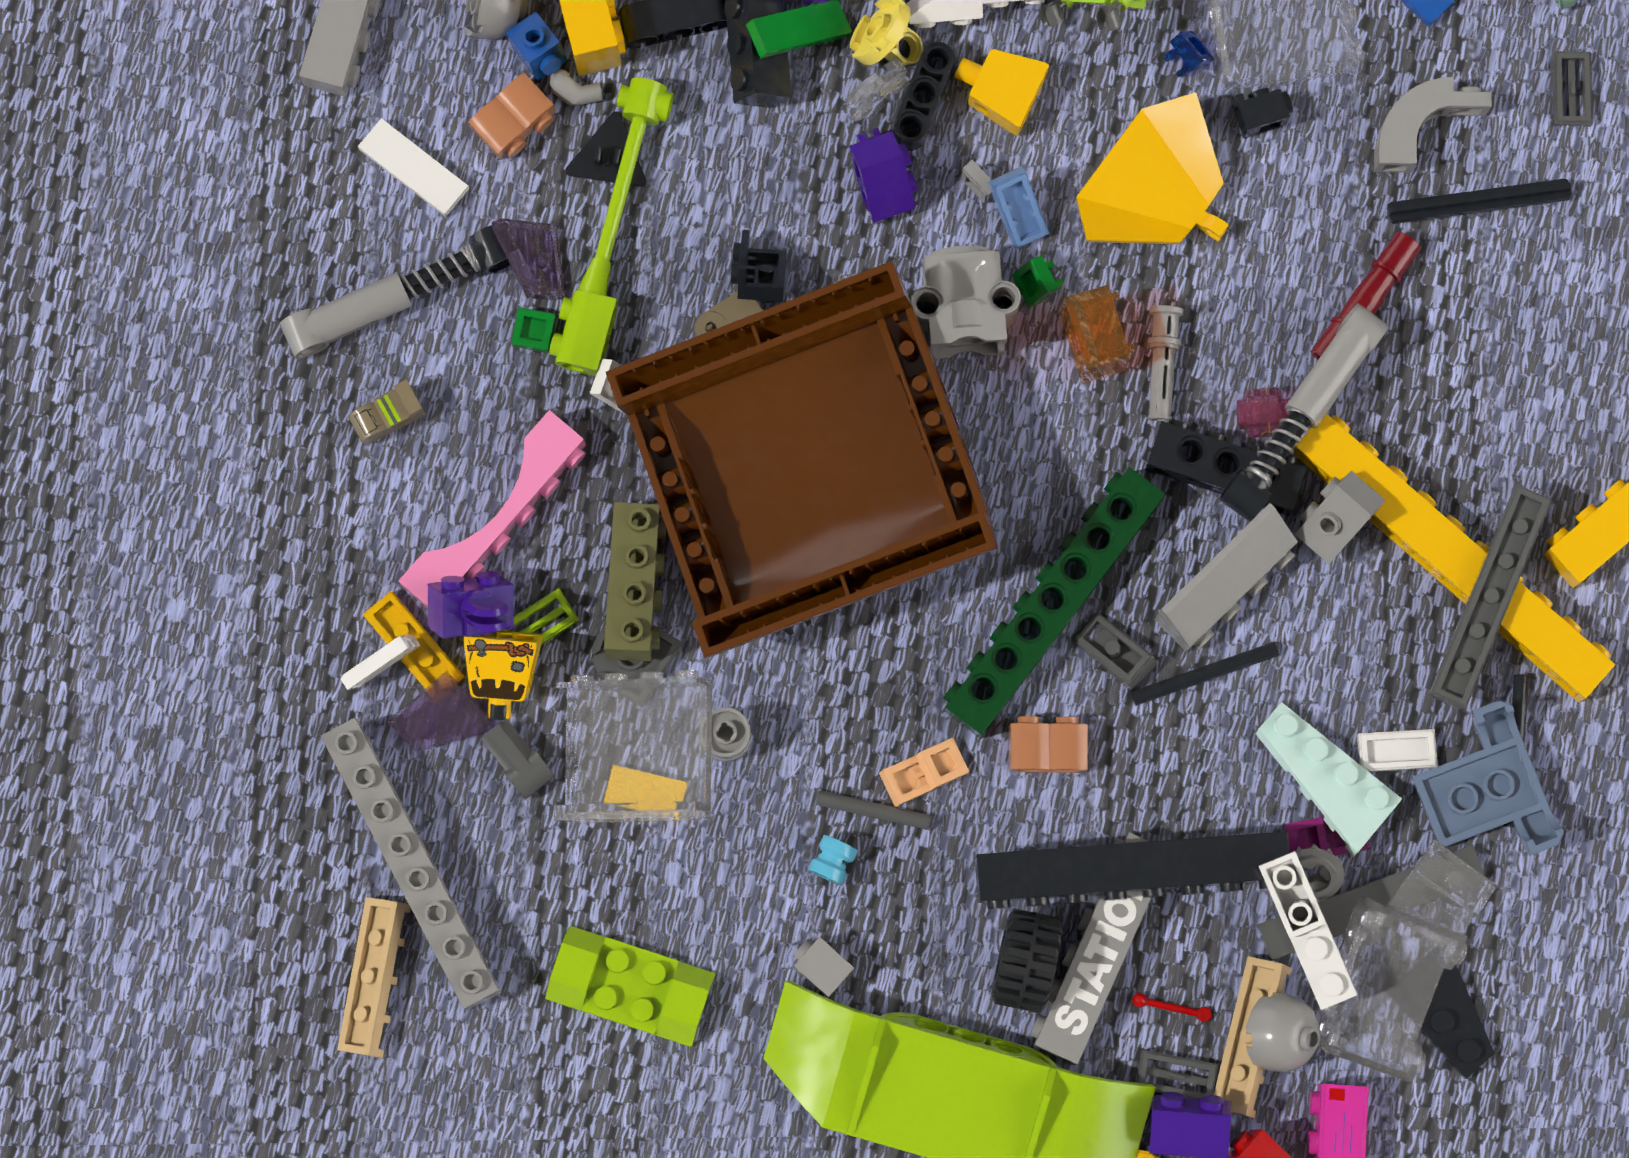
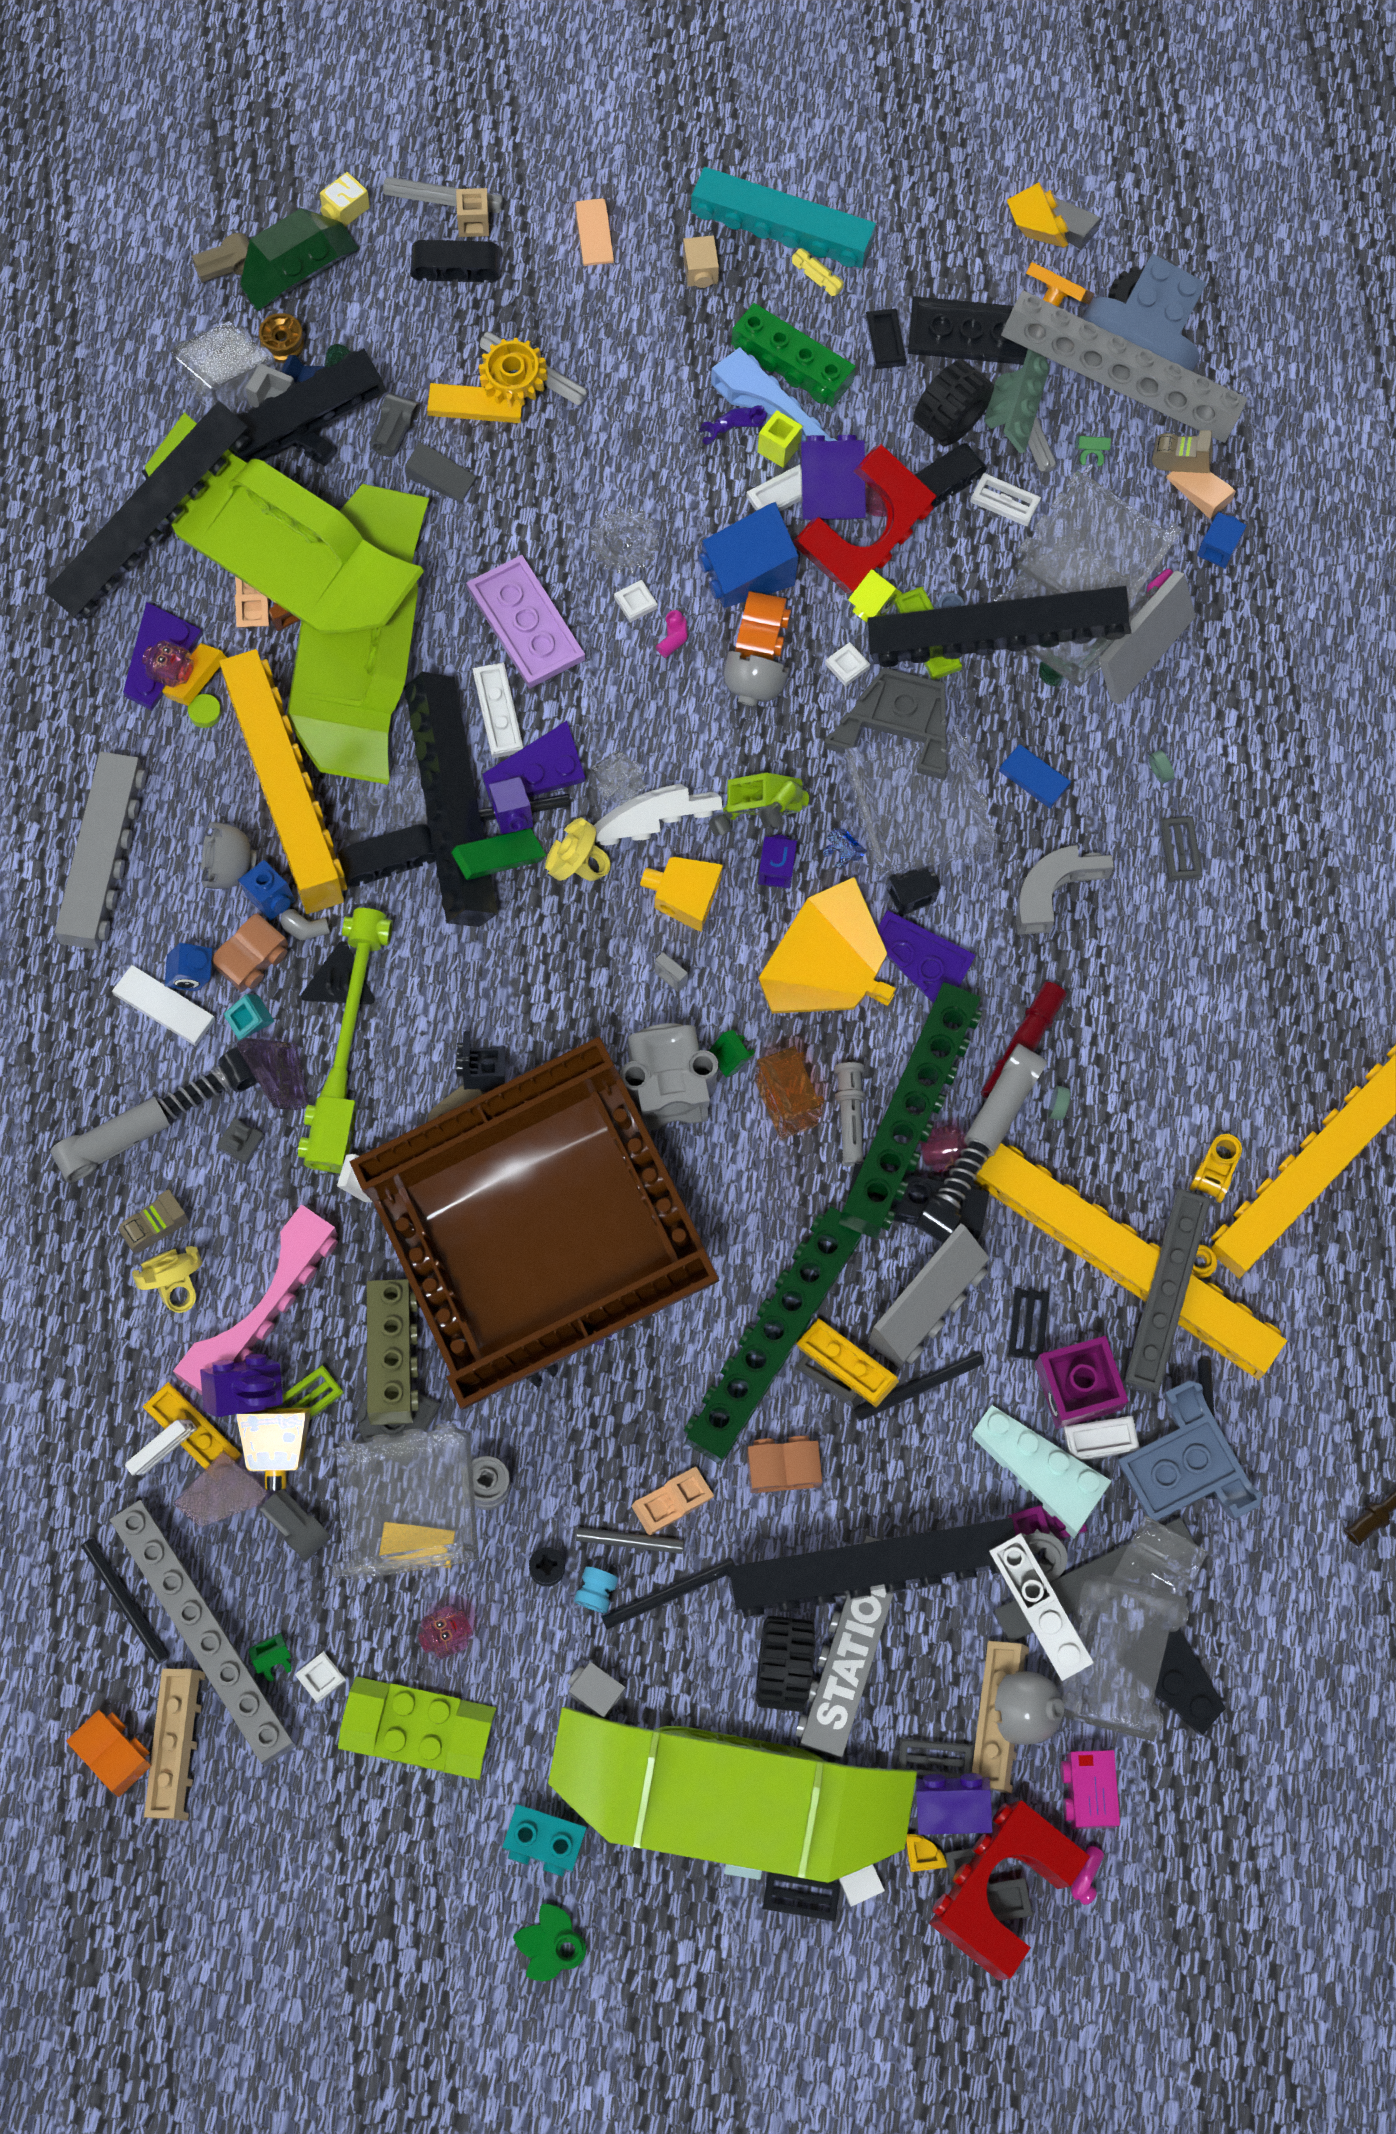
camera: 10 degrees left, 10 degrees down
(305, 979) = (109, 1751): none -> orange brick
(330, 821) = (124, 1601): none -> black bar
(400, 470) = (168, 1272): none -> light yellow tile
(443, 128) = (188, 967): none -> blue brick
(481, 893) = (270, 1653): none -> green tile
(487, 330) = (240, 1141): none -> dark grey tile
(505, 188) = (248, 1016): none -> teal slope
(532, 923) = (320, 1677): none -> white tile
(533, 330) = (282, 1136): green plate -> none
(667, 889) = (444, 1632): none -> clear pink head
(754, 1116) = (544, 1840): none -> teal brick
(782, 837) = (547, 1573): none -> black wheel
(875, 89) = (570, 899): clear plate -> none
(883, 174) = (585, 972): dark purple brick -> none
(910, 871) = (666, 1594): none -> black bar
(925, 79) = (614, 889): black beam -> none
(1018, 207) = (708, 990): medium blue plate -> none
(1111, 63) = (777, 861): none -> dark purple brick
(1129, 641) = (847, 1362): none -> yellow tile
(1202, 1014) = (952, 1699): red hinge -> none
(1266, 192) = (923, 955): none -> dark purple wing
(1290, 252) = (950, 1006): none -> dark green brick
(1339, 517) = (1023, 1232): light grey brick -> none
(1339, 586) = (1031, 1296): none -> black tile
(1382, 688) = (1081, 1382): none -> magenta brick
(1396, 372) = (1059, 1103): none -> sand green tile
(1479, 201) = (1112, 950): black axle -> none
(1543, 567) = (1210, 1262): none -> yellow plate
(1561, 468) = (1215, 1172): none -> yellow piece

